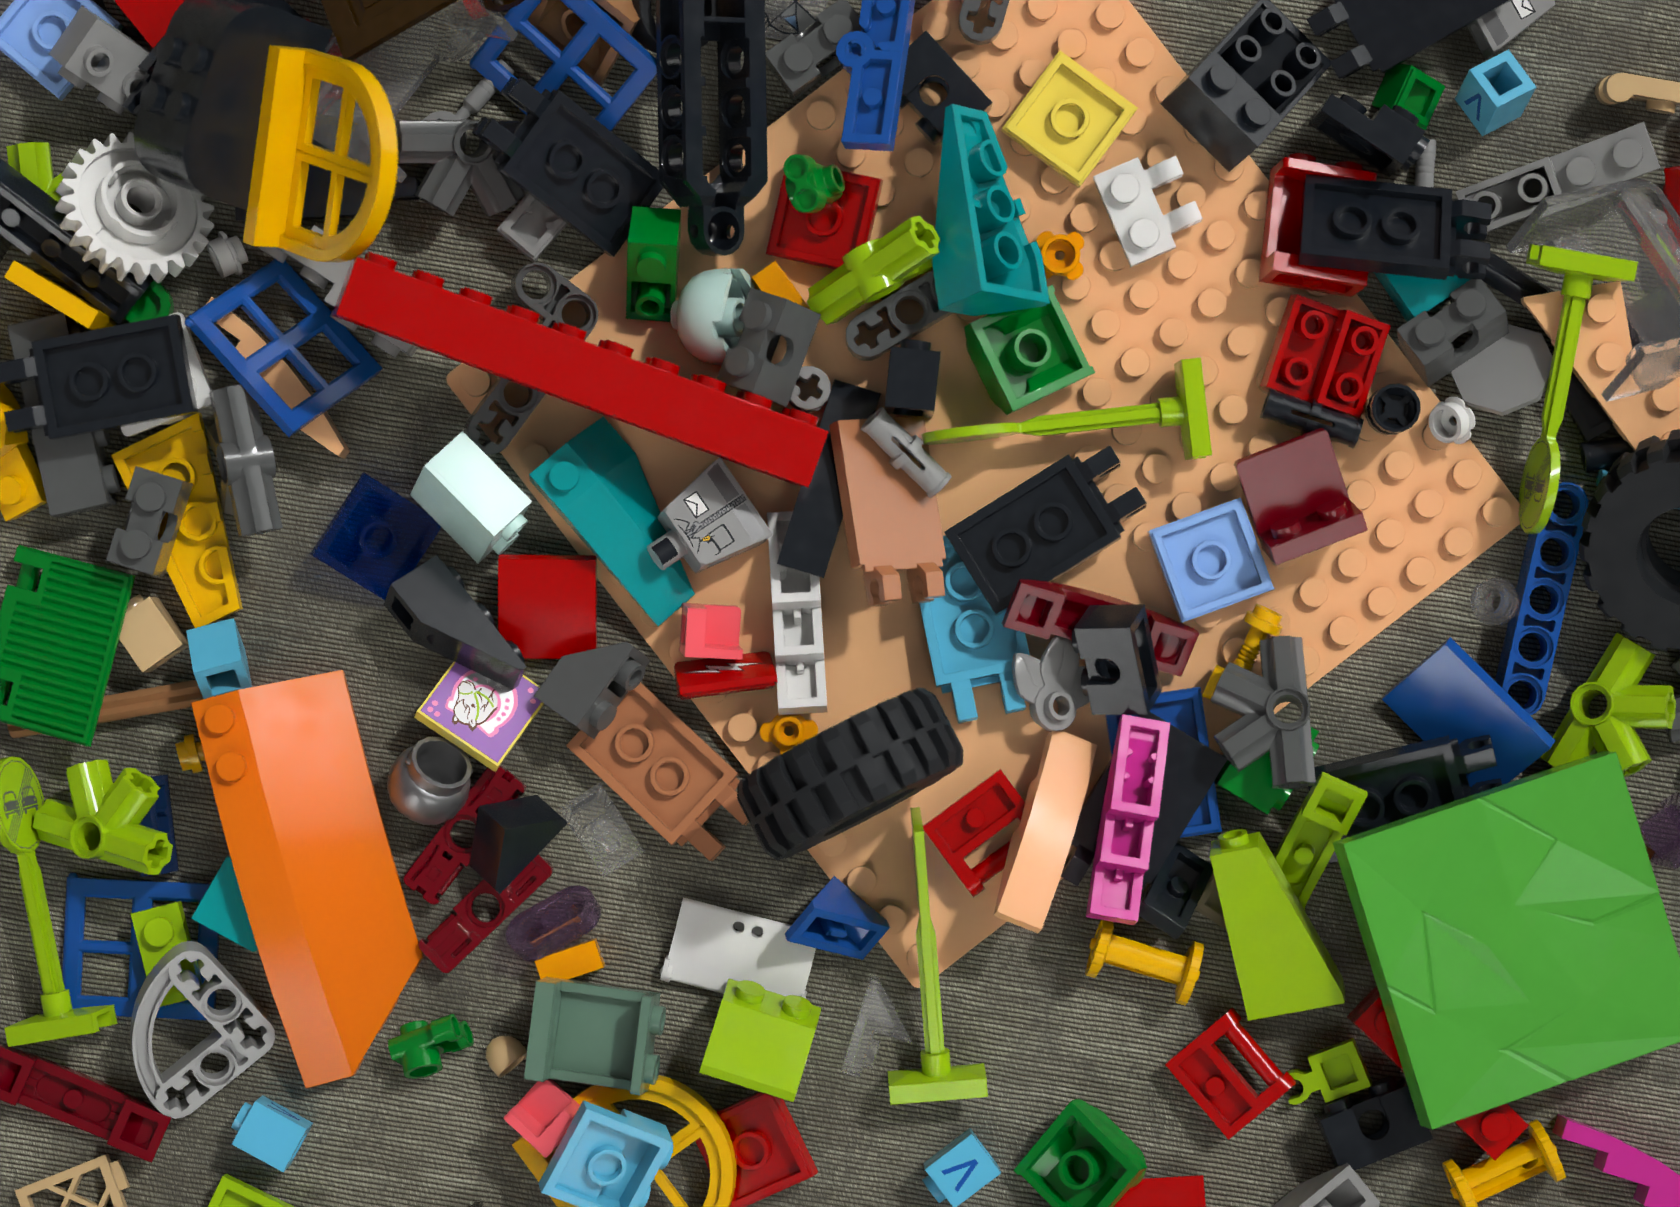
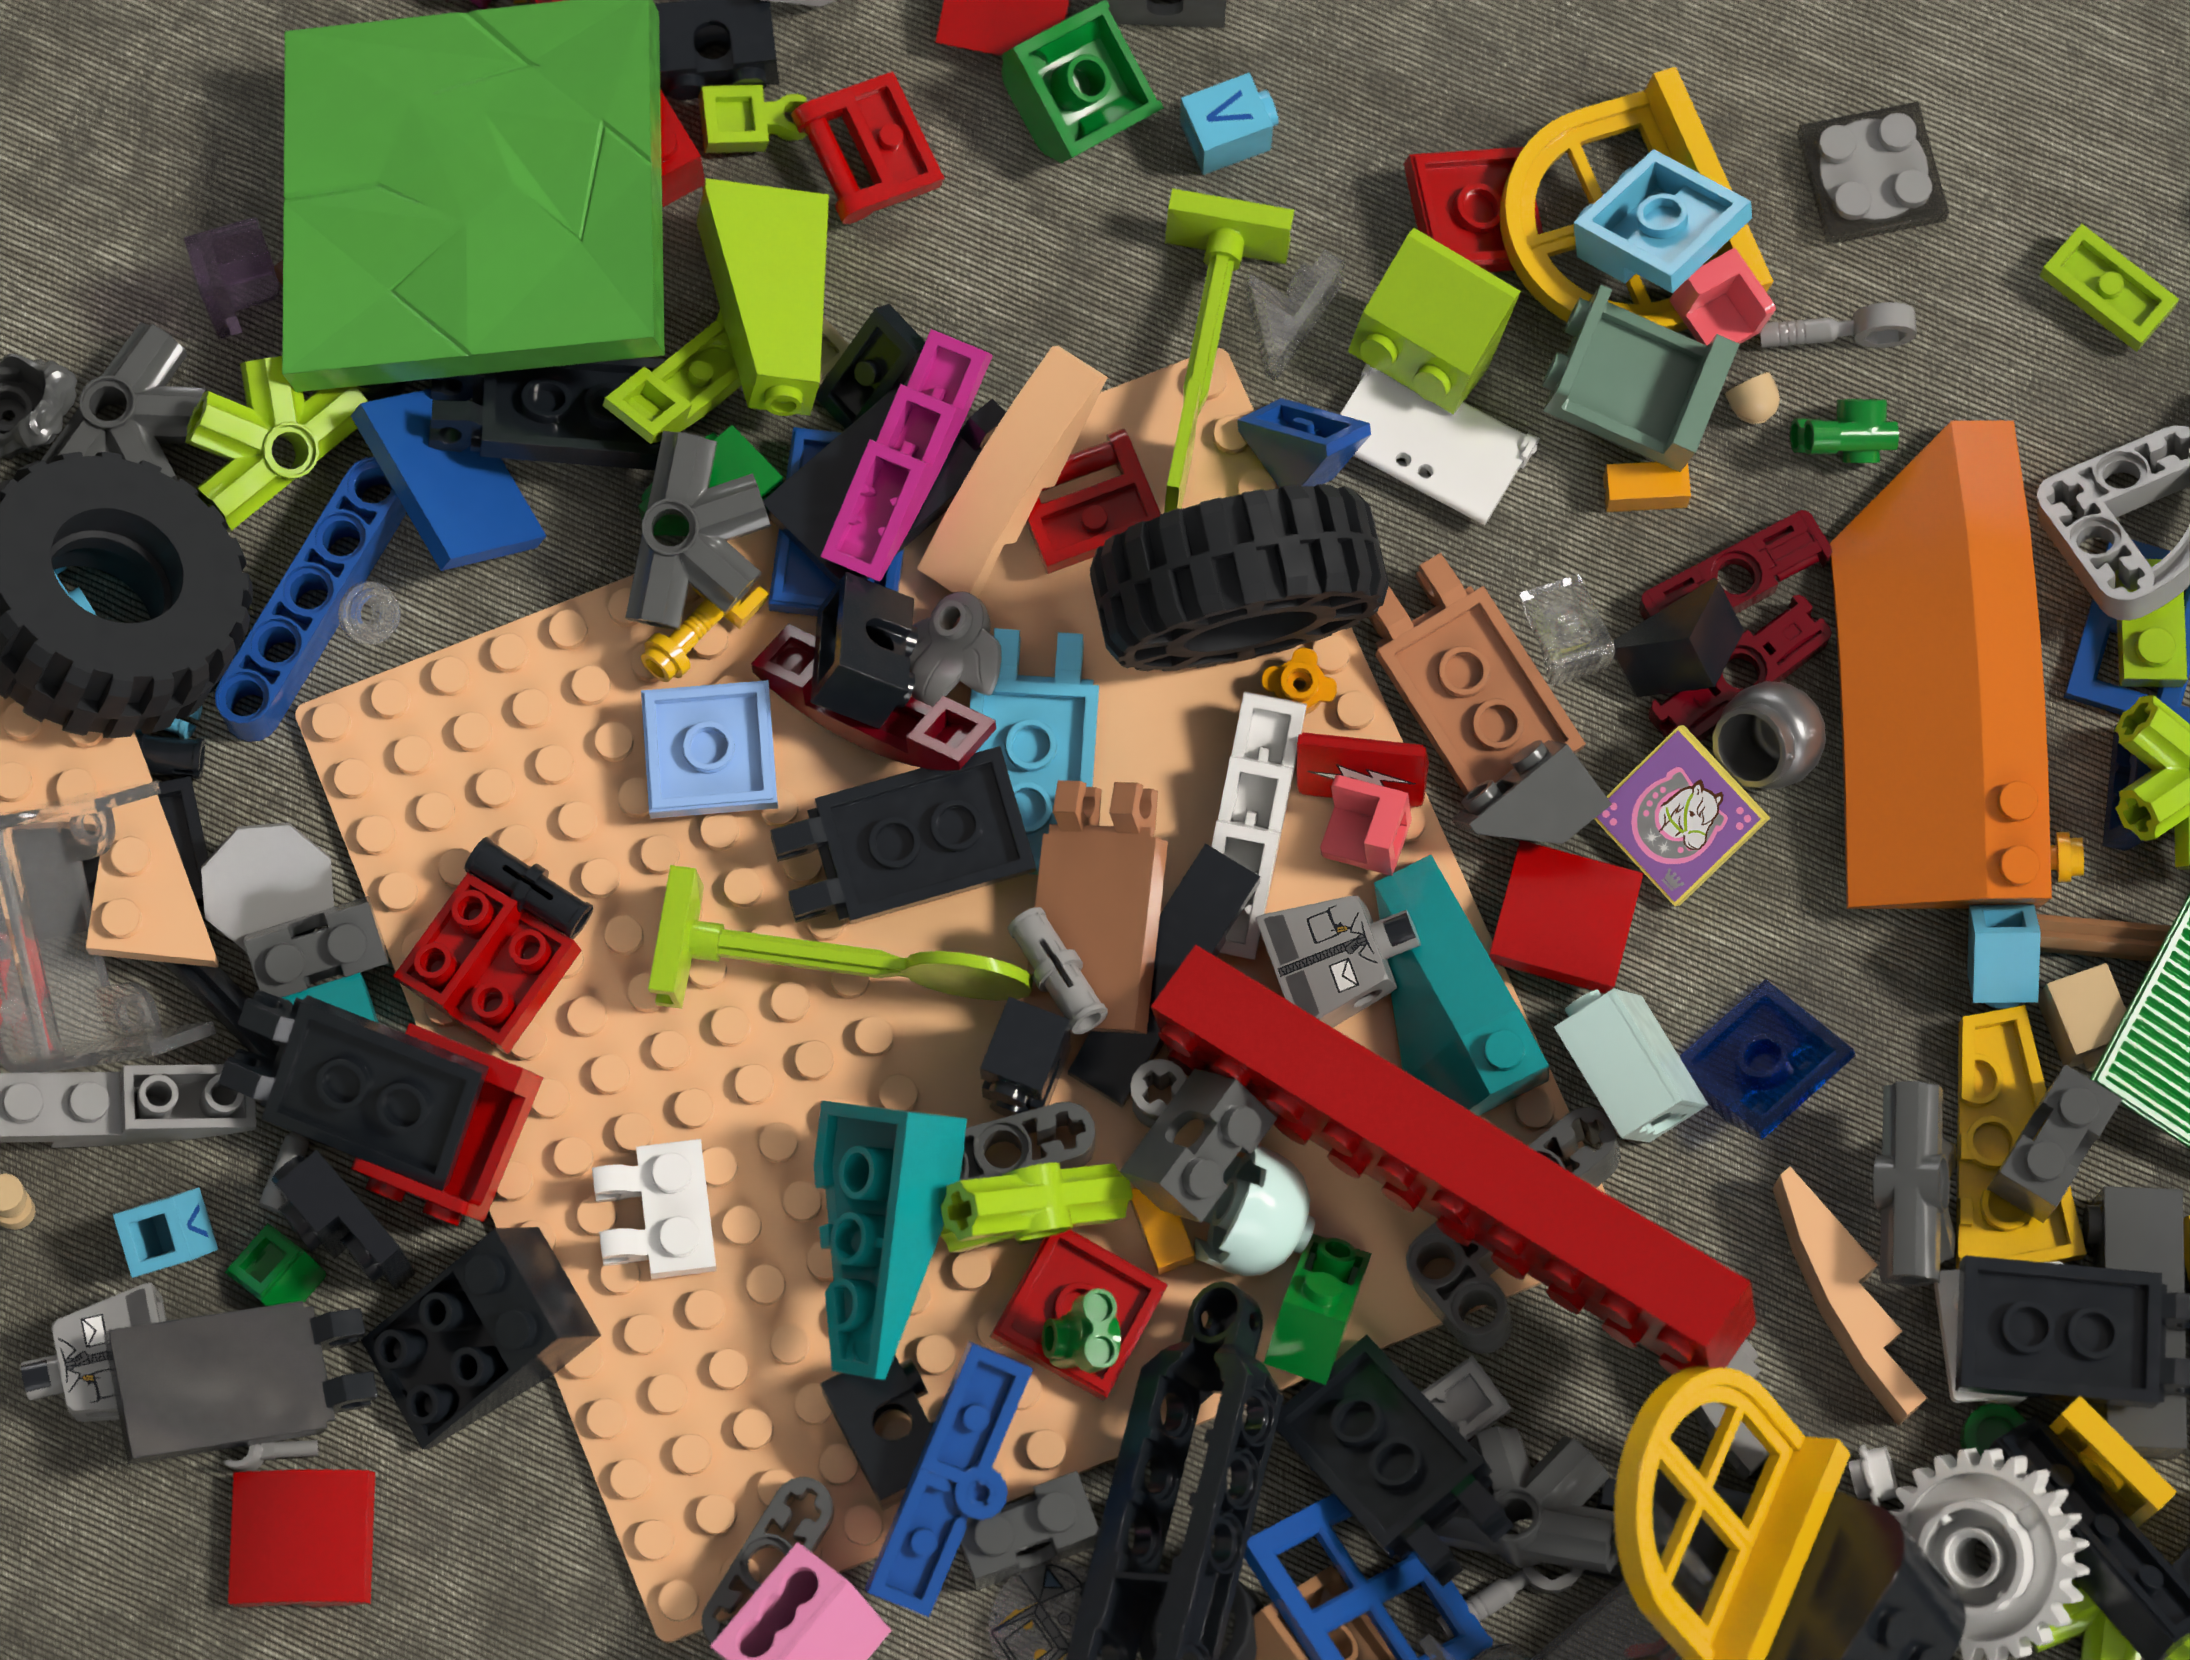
camera: 165 degrees left, 15 degrees down
(224, 908) = (2070, 653): teal slope -> none
(270, 1132) = (2069, 379): medium azure brick -> none
(283, 345) = (1827, 1325): blue window -> none
(435, 1134) = (1872, 326): none -> light grey piece
(445, 619) = (1701, 931): black slope -> none
(553, 922) = (1653, 536): clear purple plate -> none
(1025, 354) = (868, 1053): green slope -> none
(1069, 119) = (724, 1351): light yellow tile -> none
(1070, 246) = (770, 1187): light orange plate -> none
(1145, 960) = (893, 278): yellow hose -> none
(1298, 497) = (576, 785): dark red bracket -> none
(1400, 405) = (418, 857): black wheel -> none
(1443, 424) = (353, 838): white plate -> none
(1542, 466) = (259, 752): lime piece -> none

